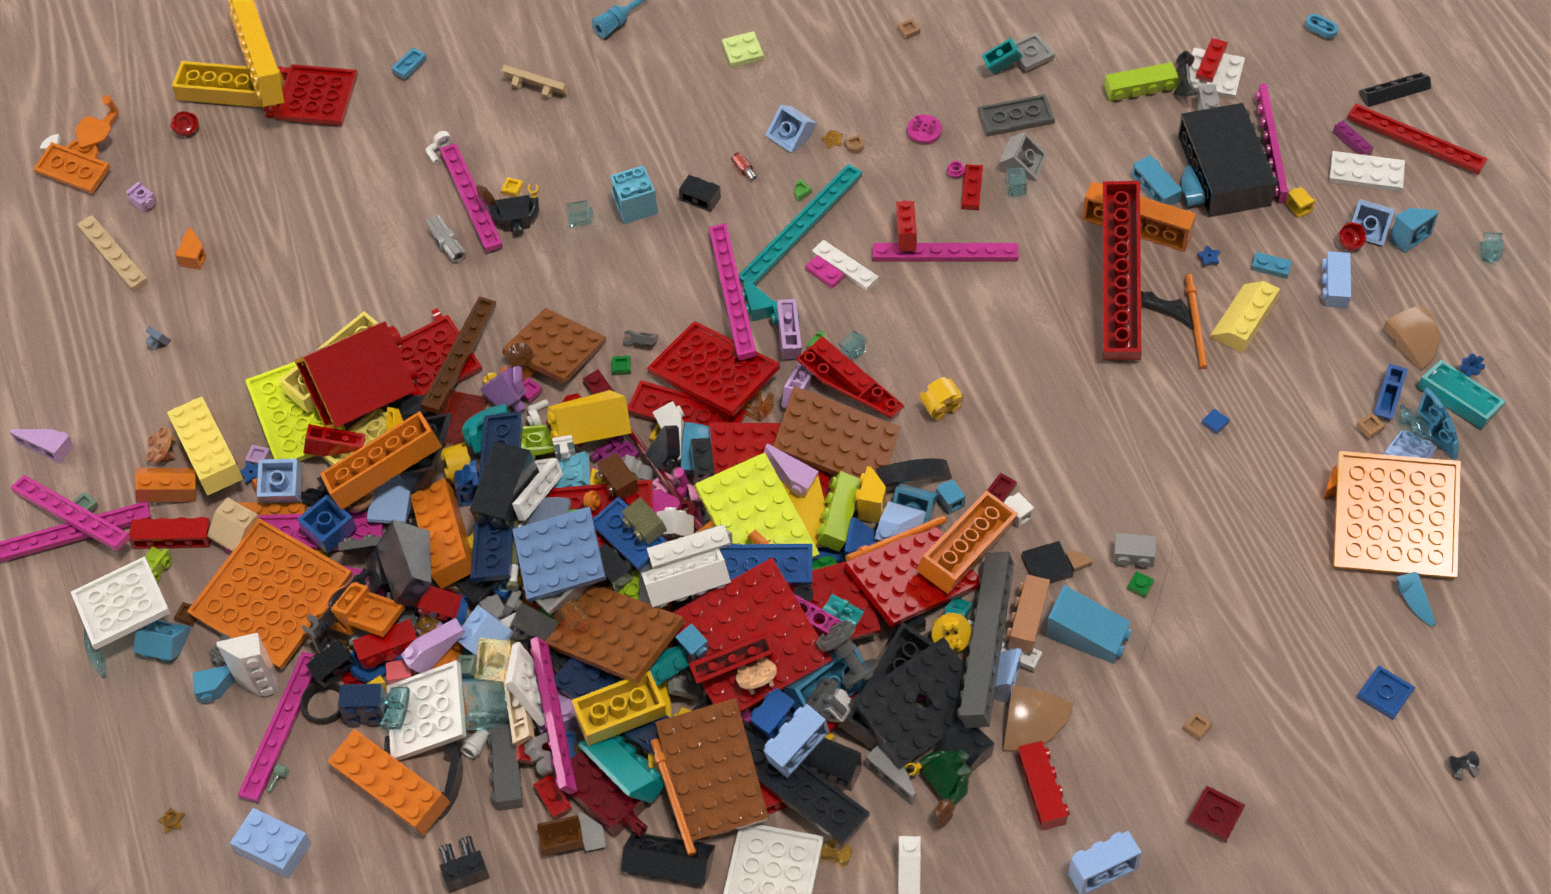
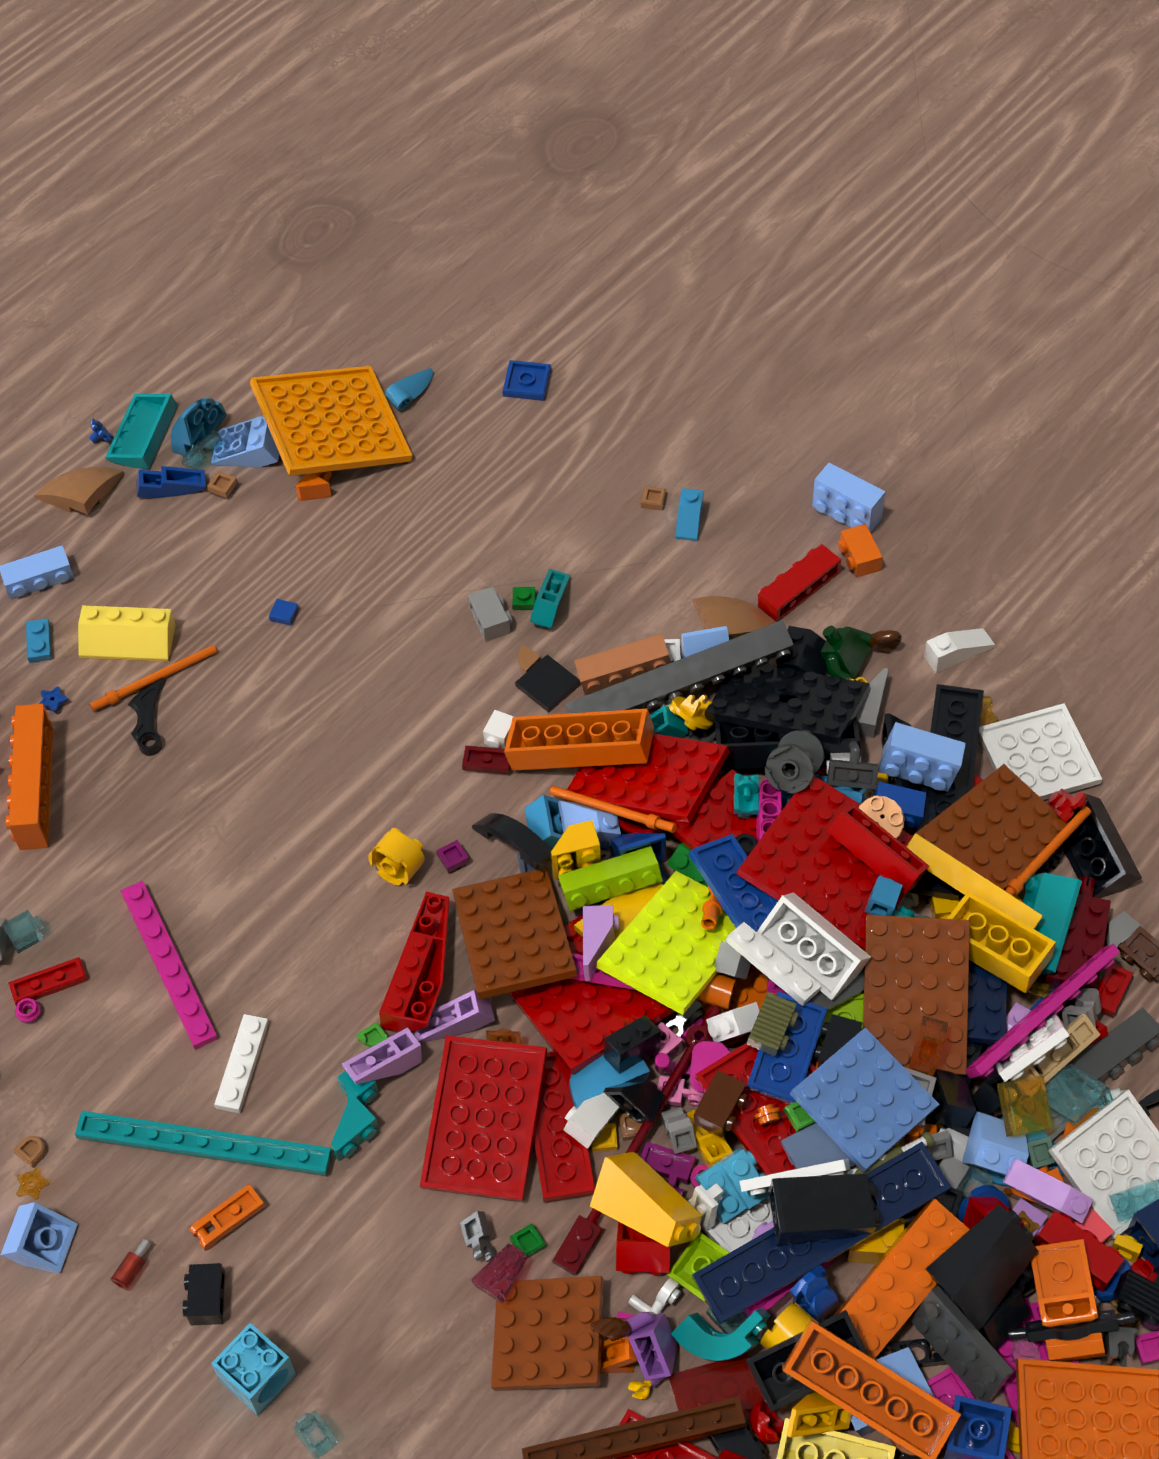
camera: 120 degrees left, 0 degrees up
(607, 336) = (500, 1273): none -> clear pink wing
(671, 716) = (966, 879): none -> yellow tile
(709, 846) = (1063, 803): none -> red hinge
(732, 292) = (354, 1157): dark pink plate -> none
(743, 222) = (227, 1216): none -> orange plate
(802, 190) = (139, 1176): bright green tile -> none
(824, 271) = (262, 1081): dark pink plate -> none
(853, 345) = (366, 989): clear light blue window -> none
(906, 226) = (156, 1010): red brick -> none
(927, 437) = (452, 856): none -> magenta plate
(950, 496) = (518, 797): dark azure brick -> none
(1049, 850) = (860, 550): none -> orange brick
(1087, 626) = (605, 612): dark azure slope -> none
(1121, 271) = (130, 746): red brick -> none
(1128, 598) = (549, 598): none -> teal slope
(1160, 740) = (689, 514): none -> dark azure slope
(1216, 813) = (735, 450): dark red plate -> none
(1469, 761) = (565, 304): black piece -> none

